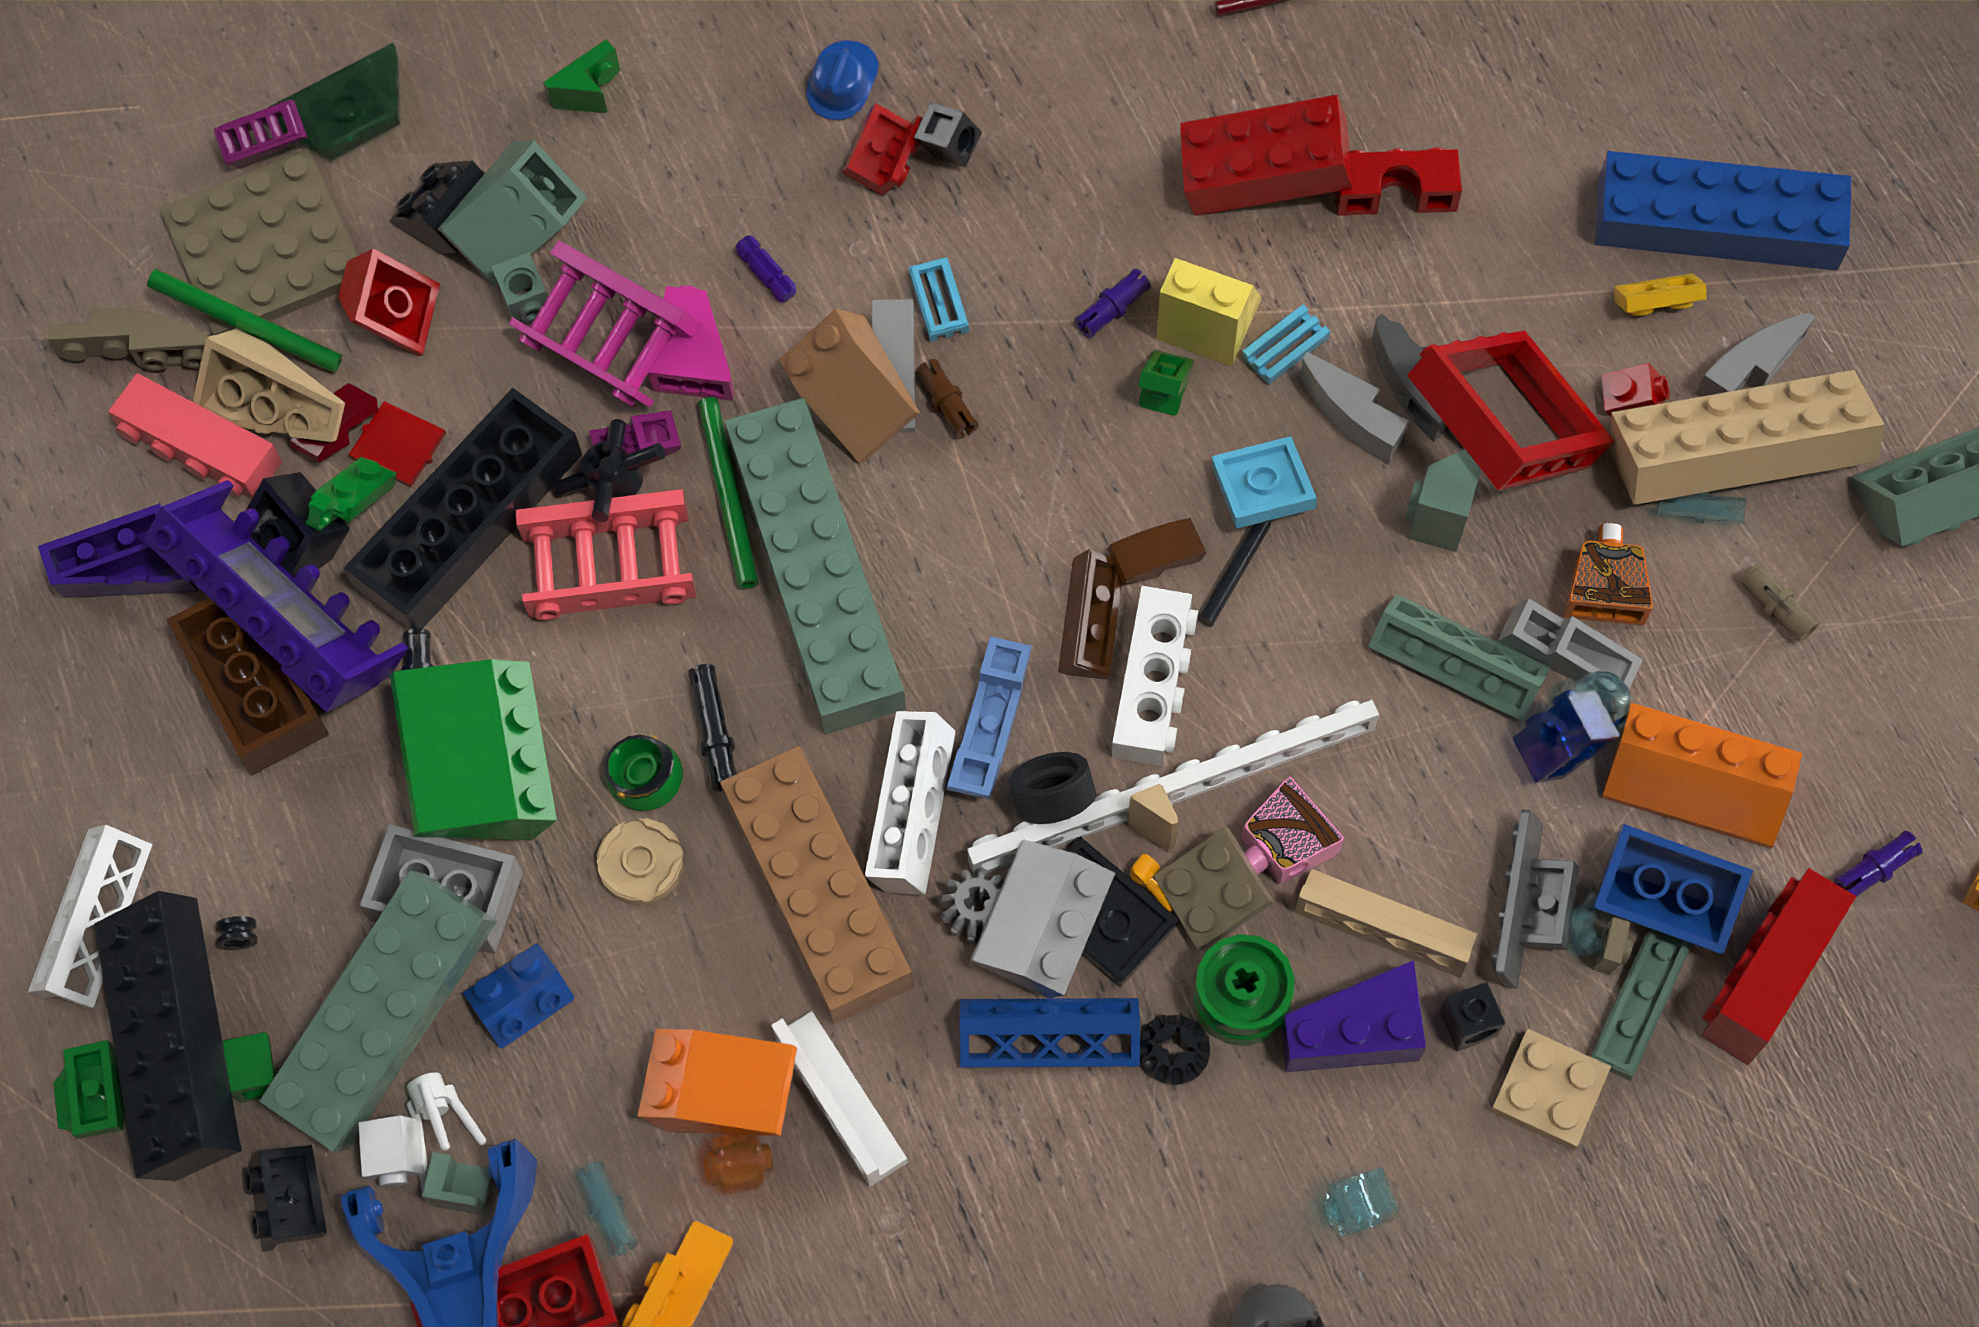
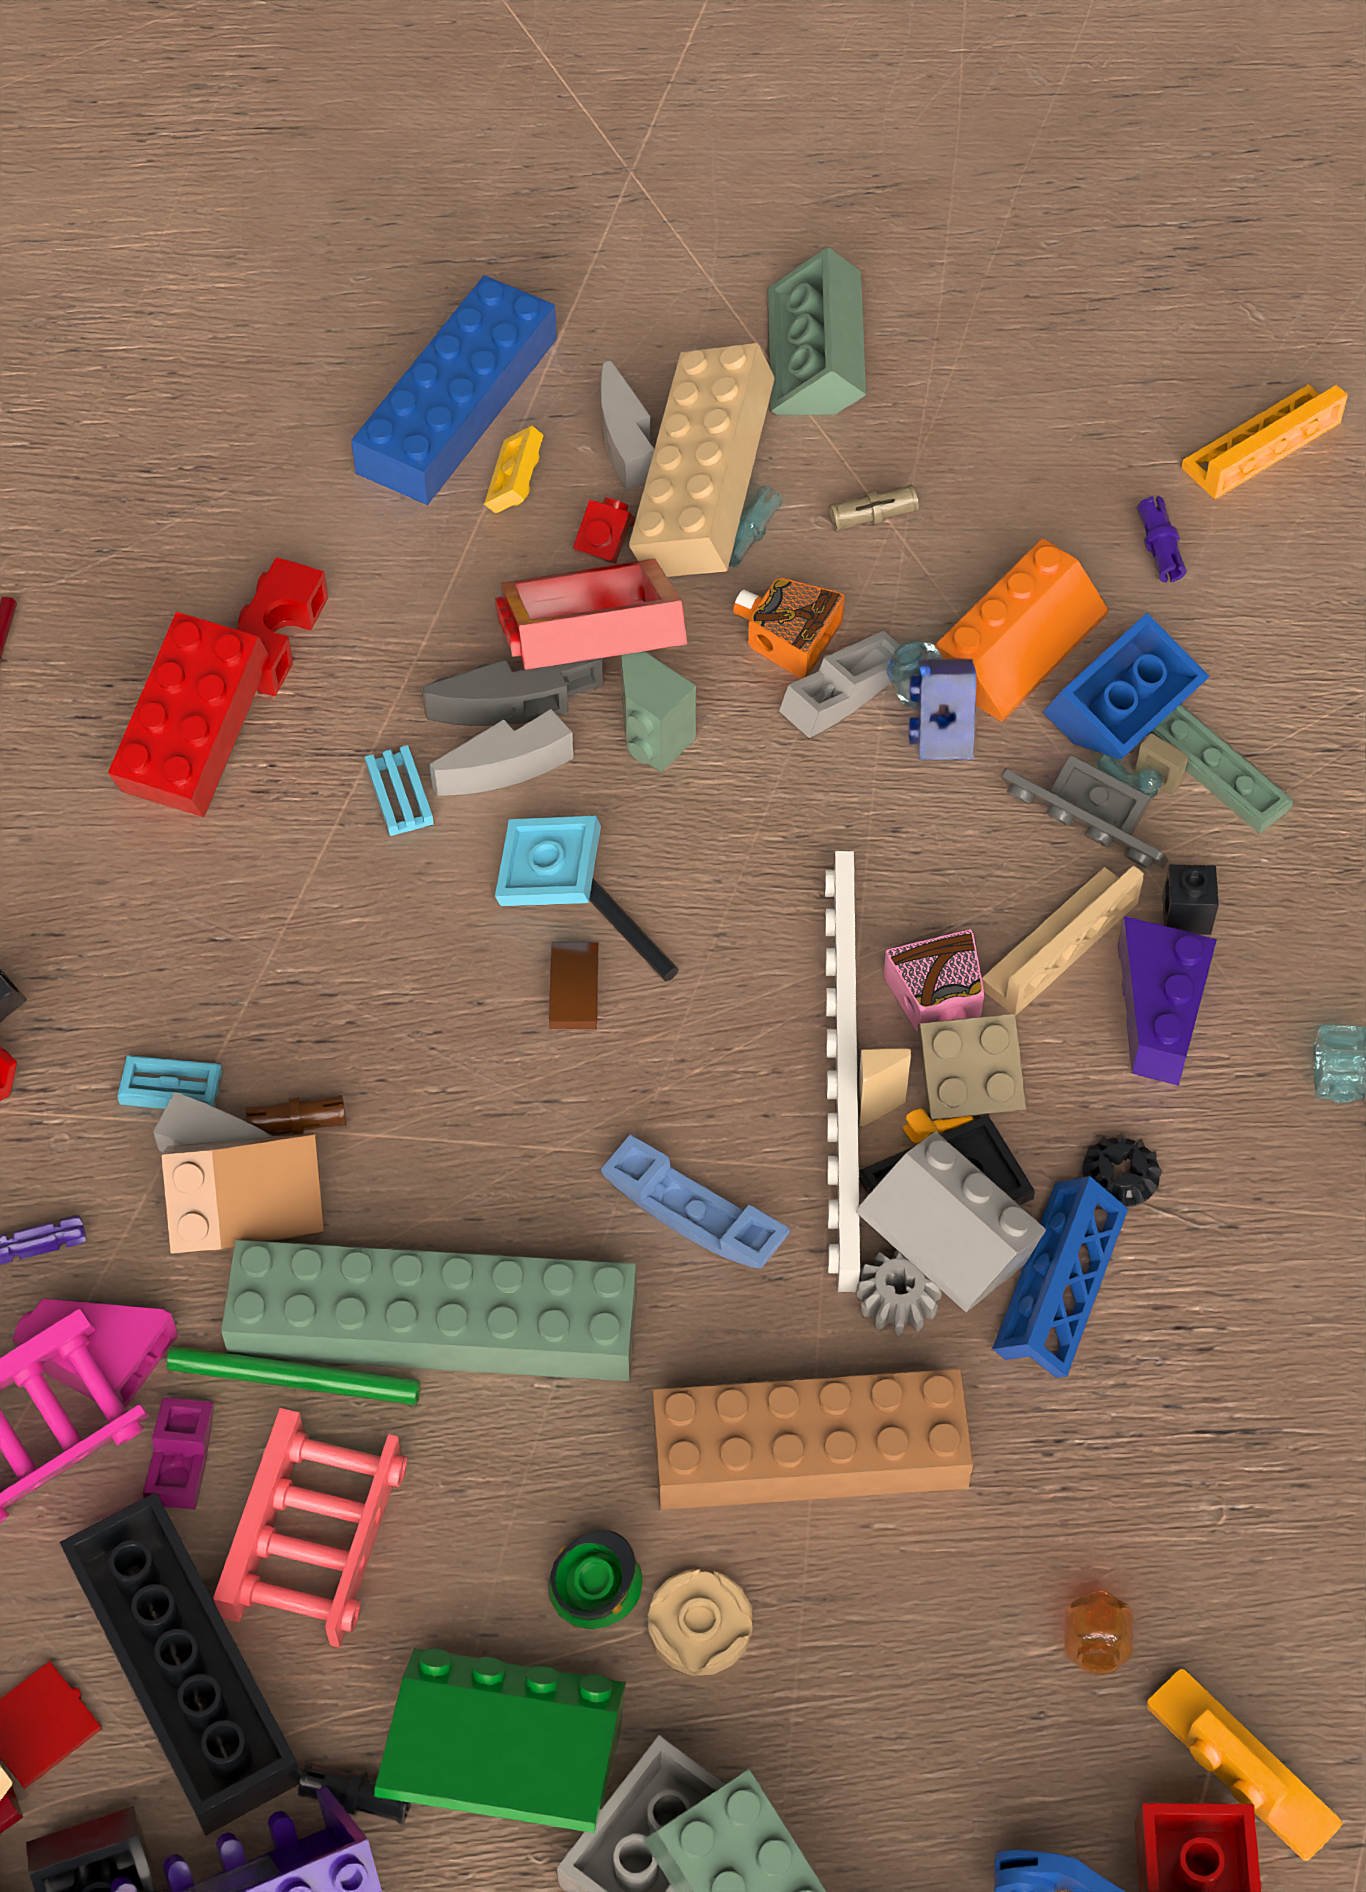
camera: 70 degrees left, 10 degrees down
(349, 492) = (87, 1787): green hinge -> none
(519, 995) = (812, 1801): blue bracket -> none
(606, 1208) = (1100, 1792): clear light blue pin -> none
(610, 470) = (215, 1478): black bar -> none
(716, 742) = (578, 1486): black pin -> none
(716, 1083) = (1011, 1609): orange slope -> none
(841, 1099) = (1059, 1506): white fence -> none
(910, 803) = (760, 1308): white brick -> none
(1052, 787) = (826, 1178): black tyre -> none
(1090, 617) = (614, 1076): reddish brown slope -> none
(1112, 303) = (268, 922): dark purple pin -> none
(1157, 612) = (724, 1059): white brick -> none
(1164, 382) = (387, 906): green slope -> none
(1205, 311) = (335, 832): light yellow slope -> none
(1233, 1013) = (1090, 1079): green wheel -> none
(1458, 657) = (813, 773): sand green fence -> none
(1551, 1089) = (1279, 871): tan plate -> none
(1775, 965) = (1239, 640): red brick -> none

